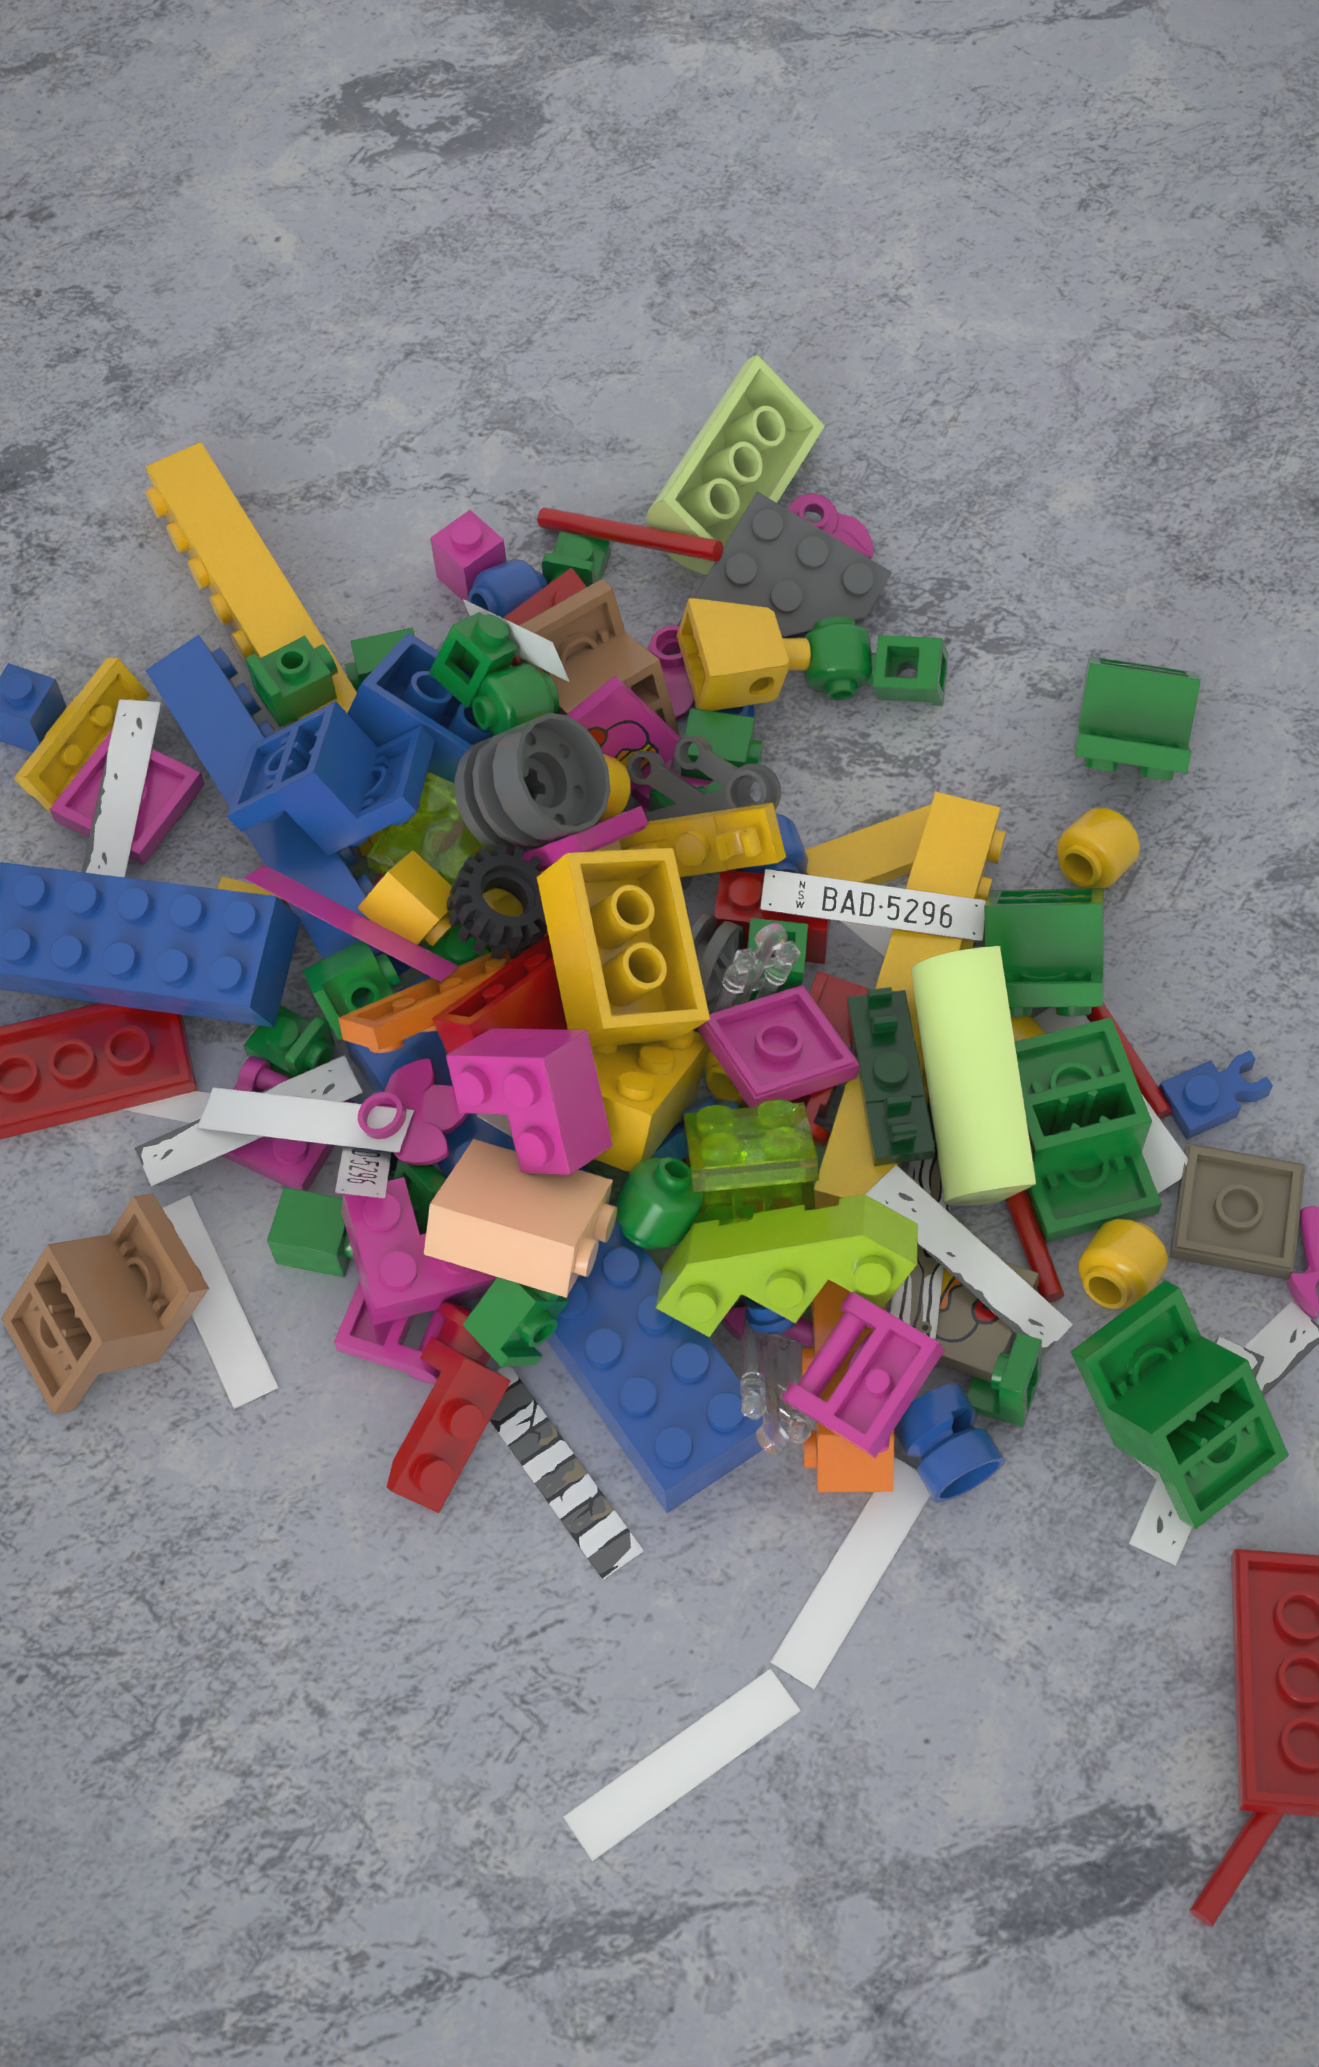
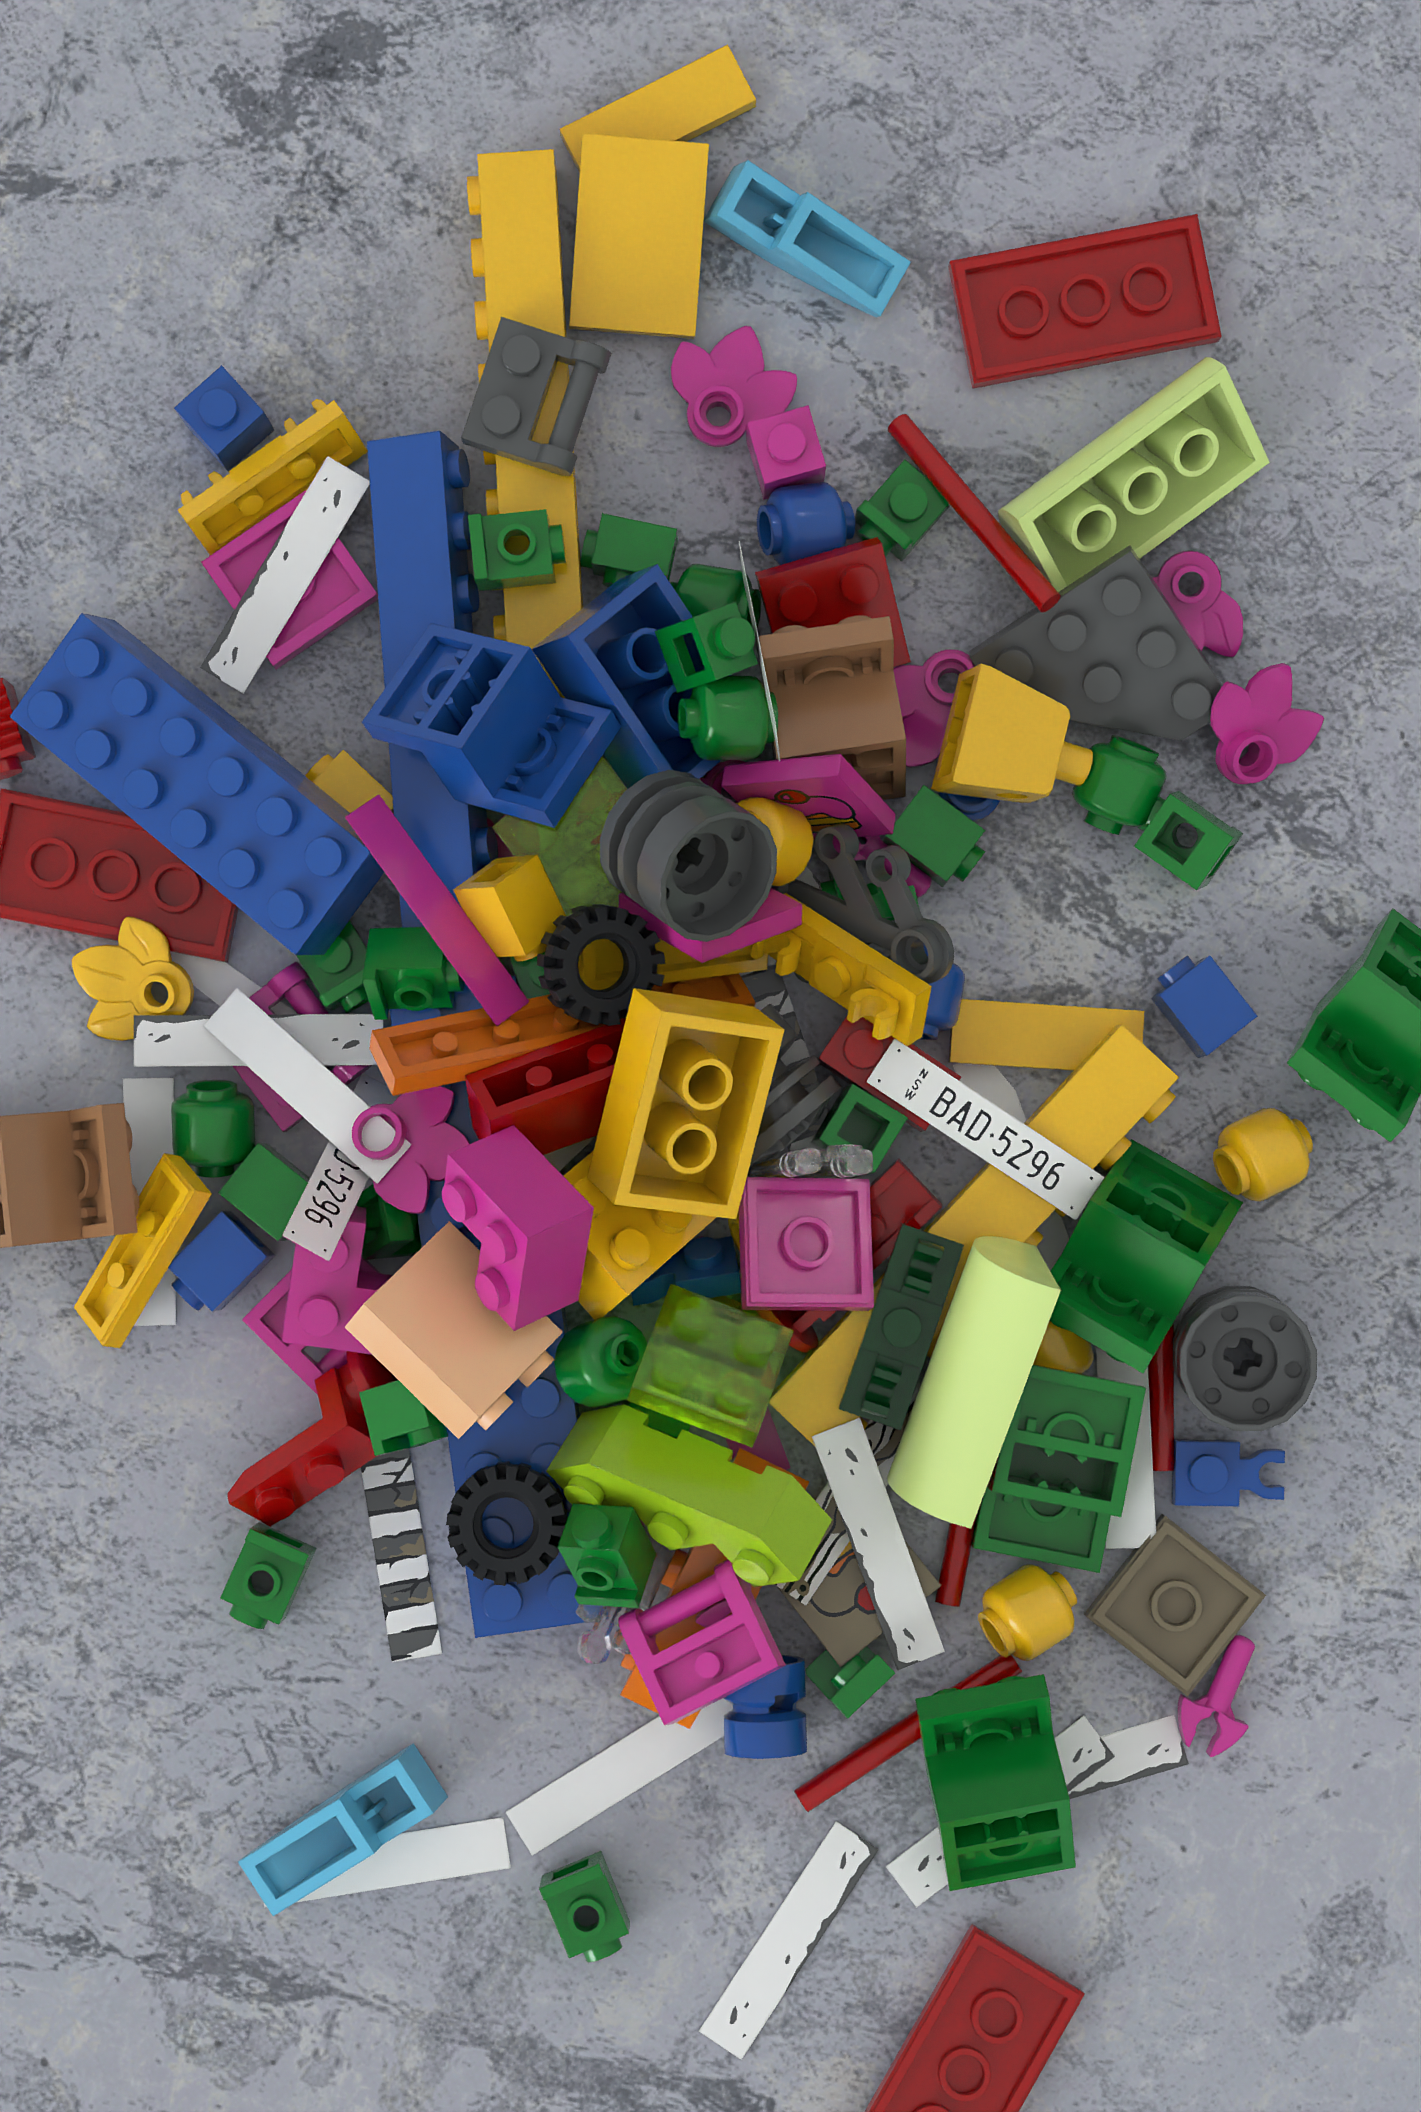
camera: 25 degrees right, 25 degrees up
(114, 1129) = (124, 976): none -> yellow plate
(221, 1320) = (139, 1260): none -> yellow tile
(238, 1204) = (213, 1127): none -> green head
(244, 585) = (515, 391): none -> dark grey plate
(269, 412) = (672, 106): none -> yellow tile
(291, 479) = (638, 236): none -> yellow tile
(293, 1307) = (219, 1263): none -> blue brick
(399, 543) = (729, 379): none -> dark pink plate
(414, 433) = (806, 239): none -> medium azure slope
(454, 1520) = (283, 1559): none -> green brick
(629, 1742) = (343, 1830): none -> medium azure slope
(634, 396) = (1084, 301): none -> red tile
(634, 1329) = (482, 1555): none -> black tyre
(742, 1342) = (607, 1554): none -> green brick
(860, 1702) = (586, 1884): none -> green brick
(917, 584) = (1265, 721): none -> dark pink plate
(989, 769) = (1202, 1004): none -> blue brick
(1056, 1459) = (890, 1741): none -> red bar
(1081, 1654) = (788, 1940): none -> white sticker
(1185, 958) = (1263, 1389): none -> dark grey wheel

